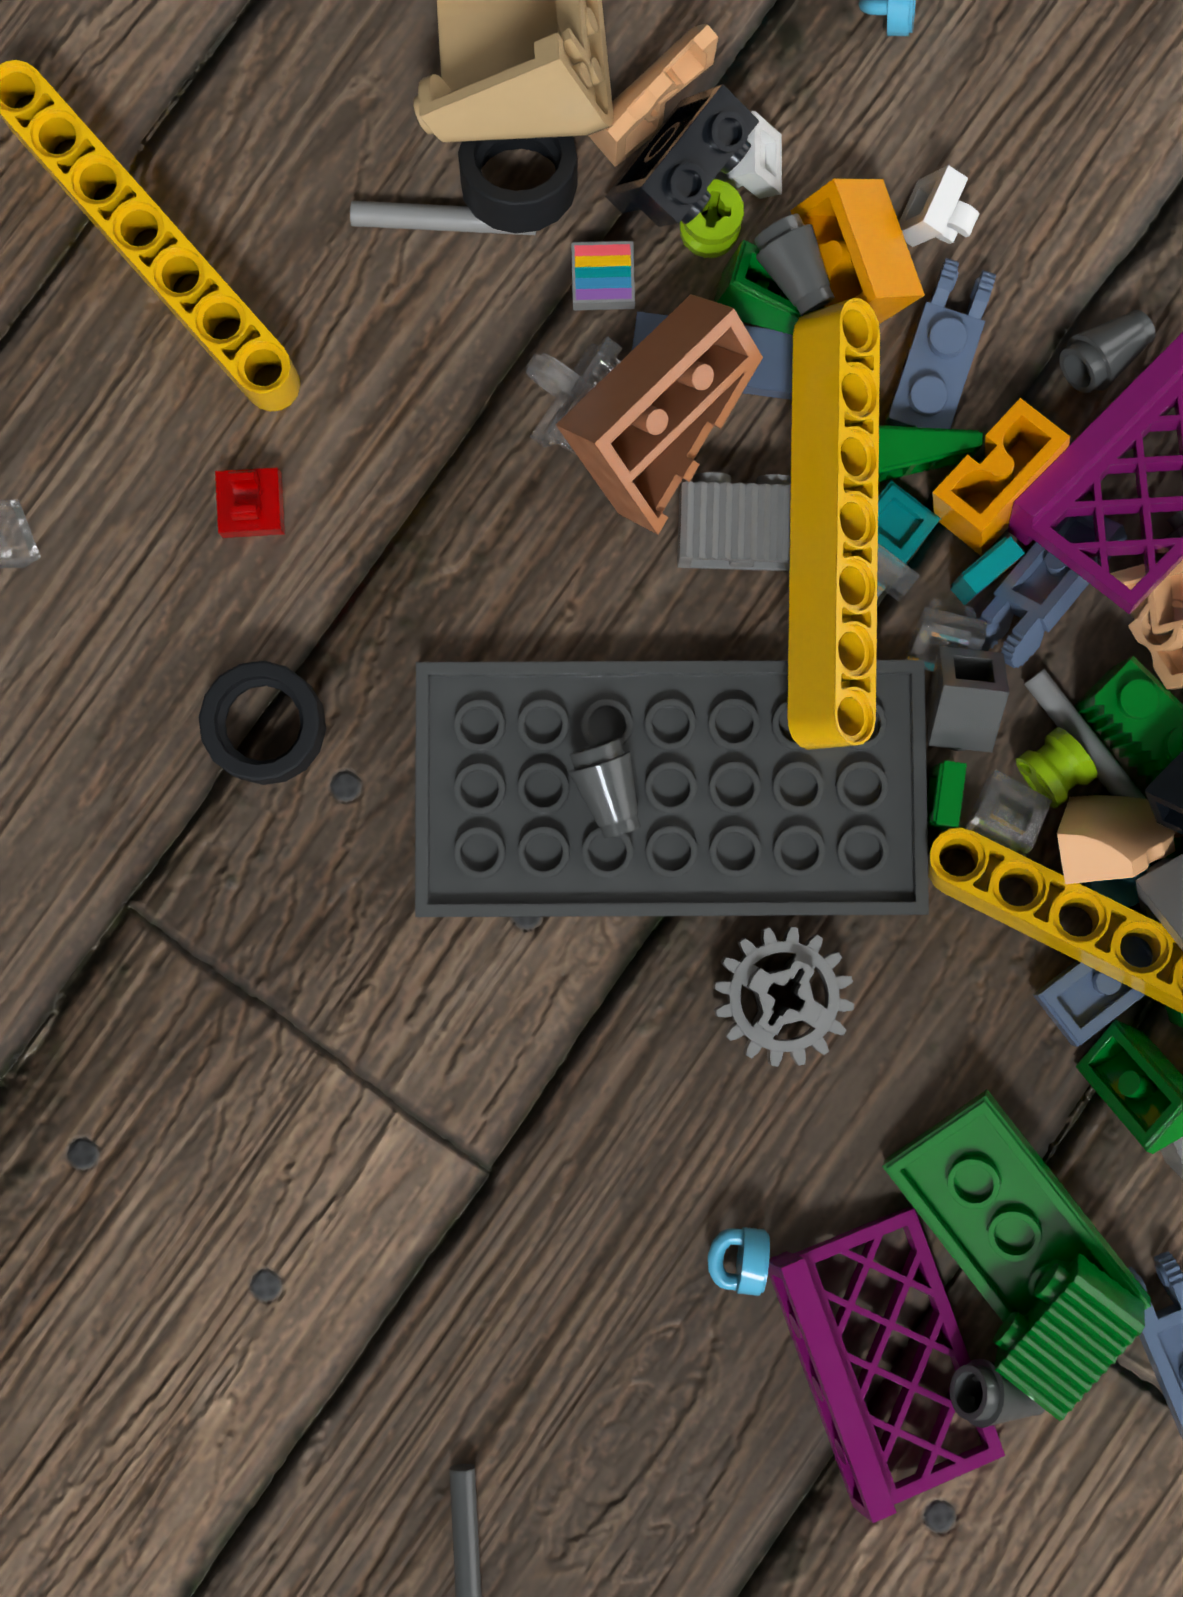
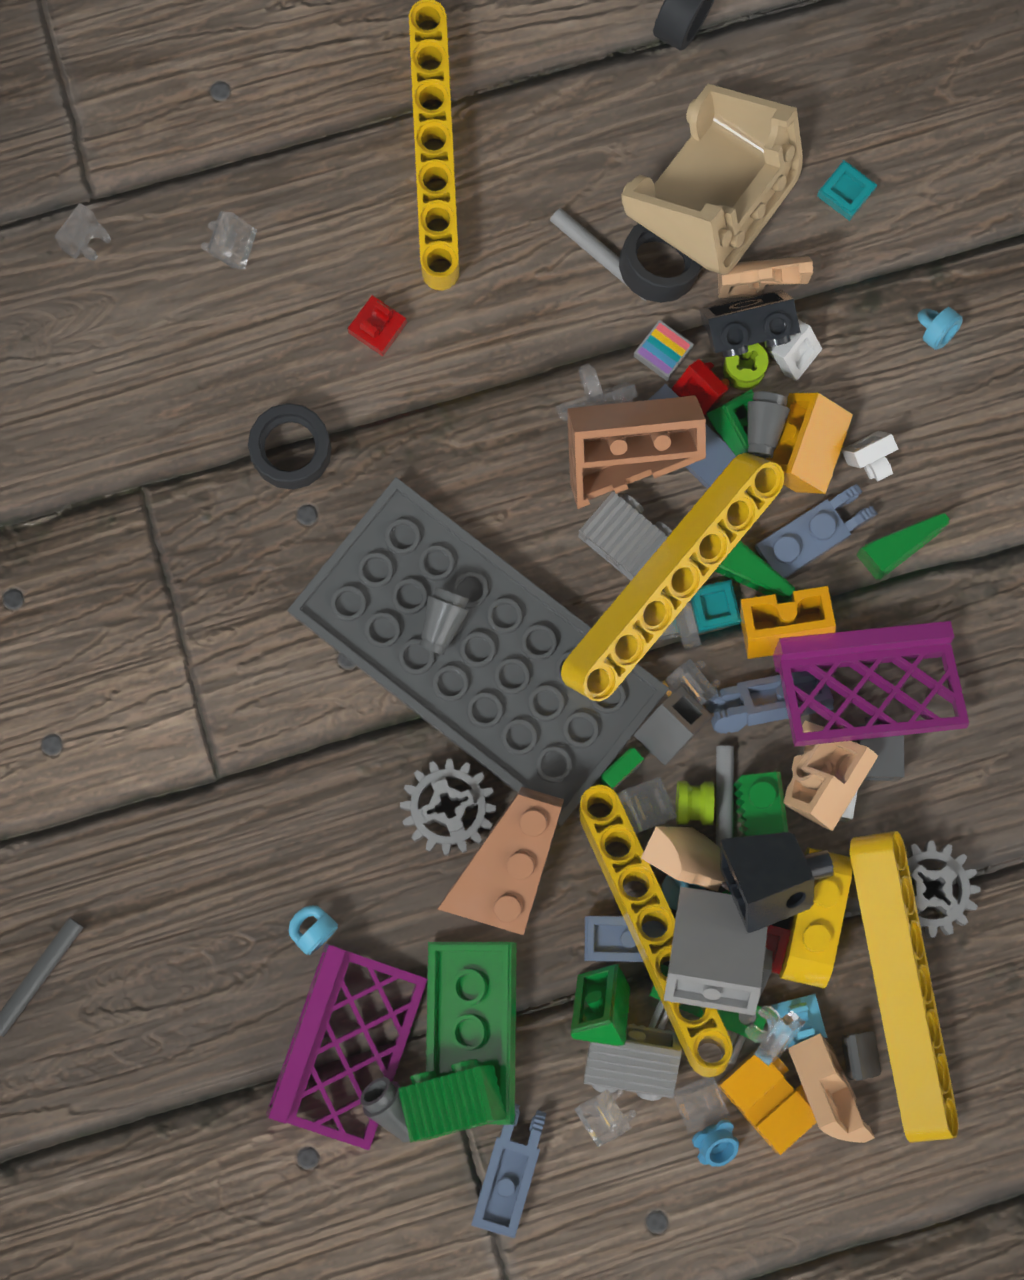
camera: 40 degrees right, 5 degrees down
(678, 276) = (703, 383): none -> red tile
(911, 1009) = (508, 865): none -> nougat wedge
(986, 569) = (742, 667): teal tile -> none
(1049, 305) = (893, 549): none -> green slope
(1105, 351) = (905, 601): dark grey cone -> none

